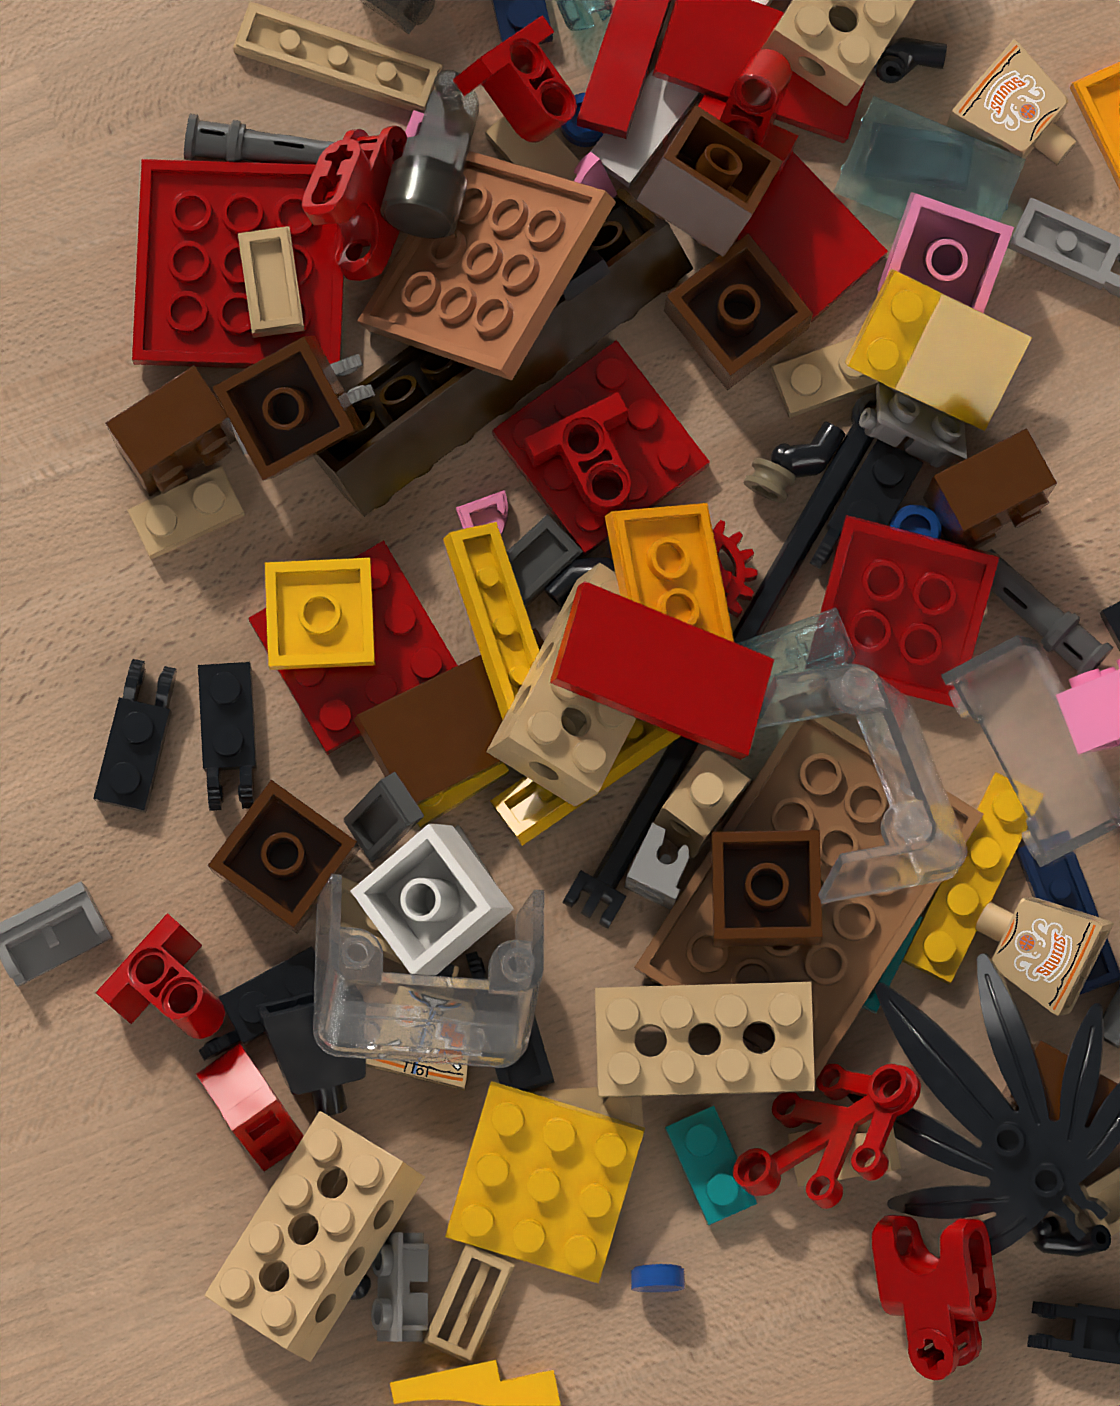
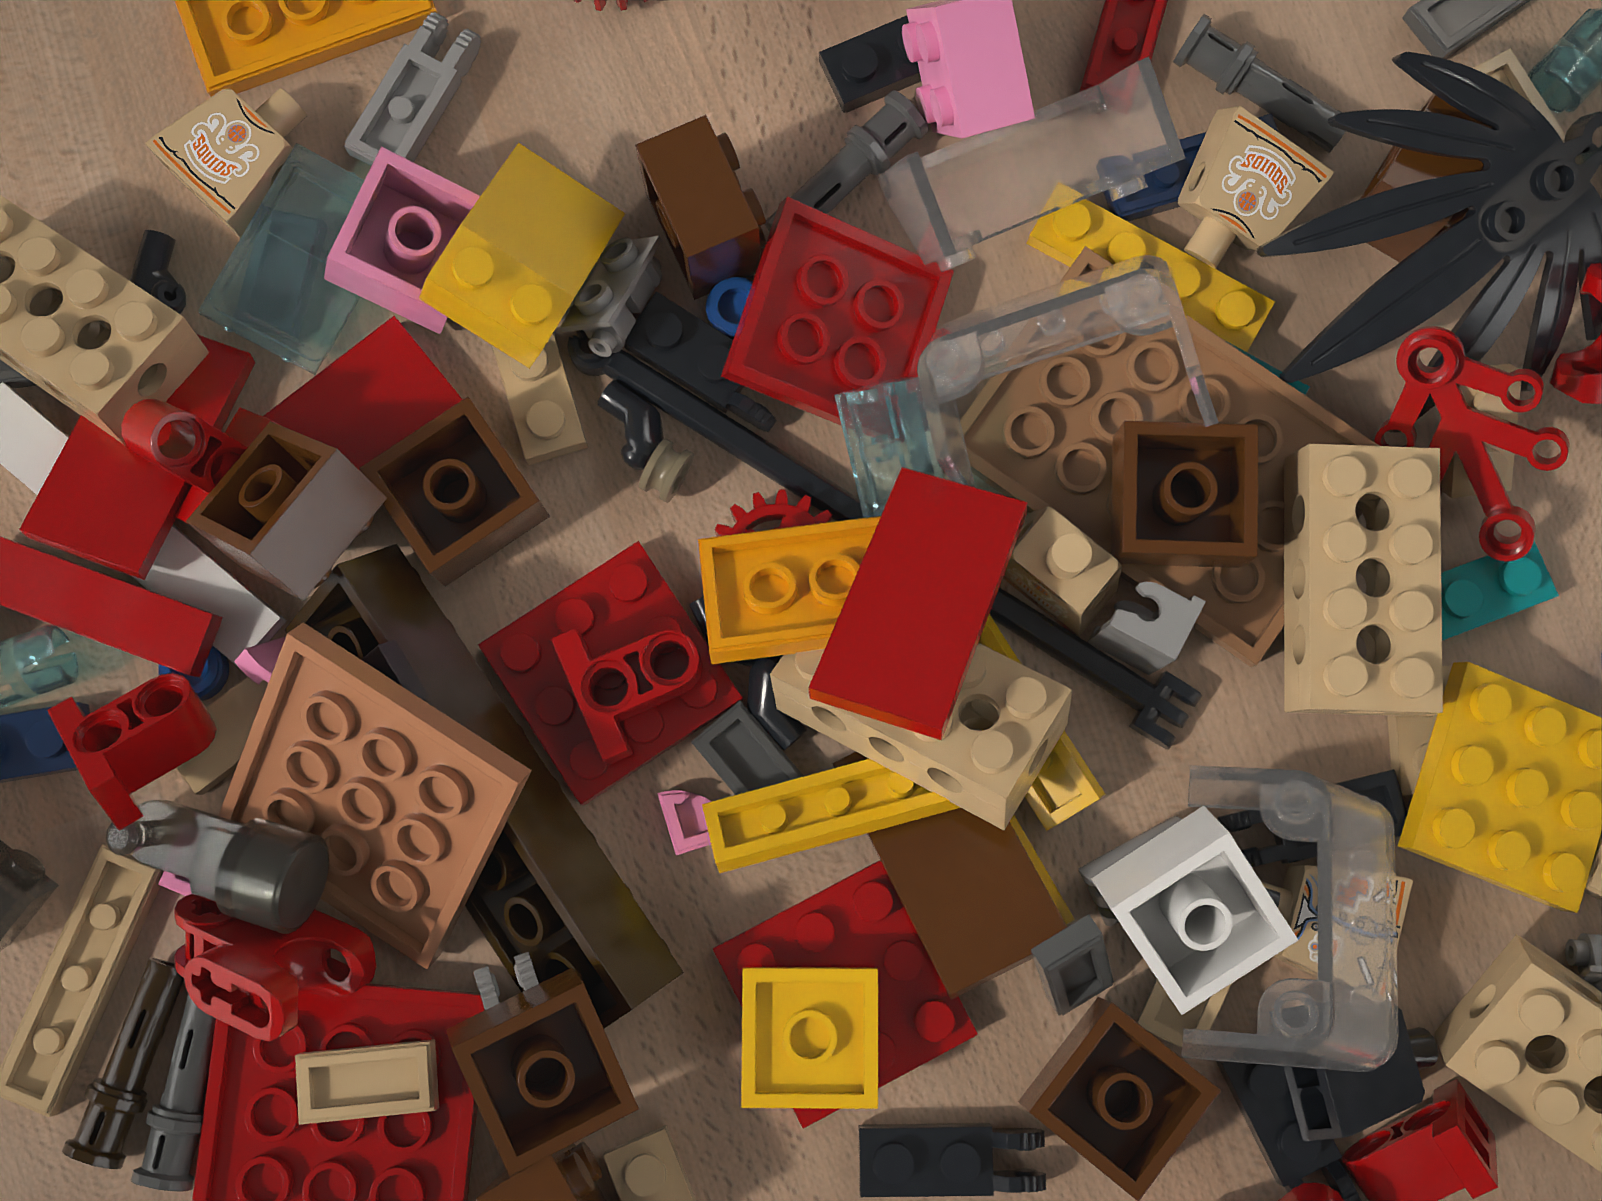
camera: 85 degrees left, 0 degrees up
(253, 97) = (119, 1092): none -> dark brown pin

